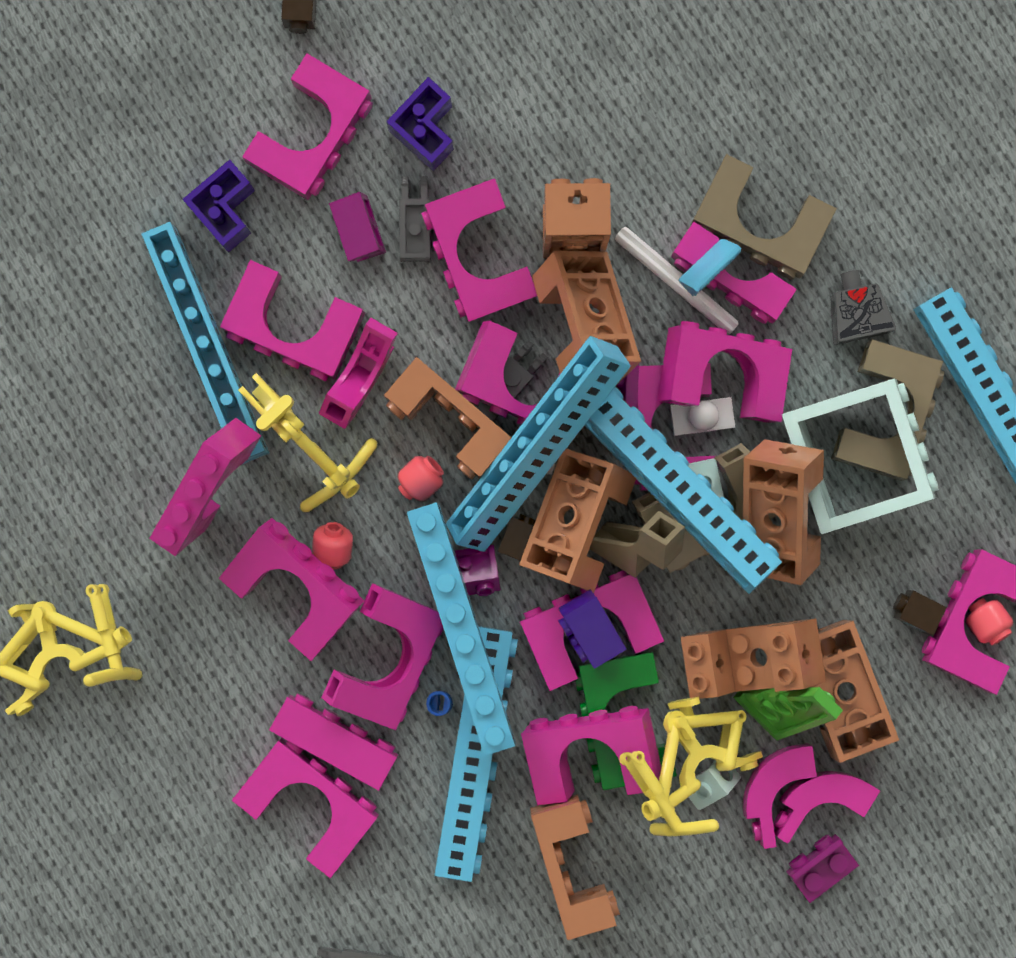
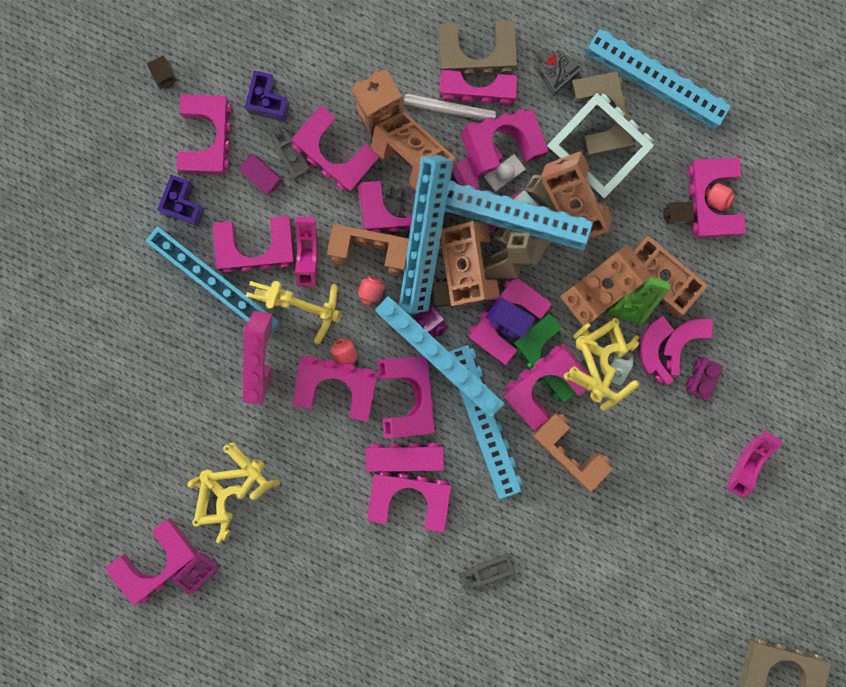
camera: 30 degrees left, 0 degrees up
(433, 703) = (446, 407): blue hinge -> none
(709, 266) = (463, 88): medium azure slope -> none

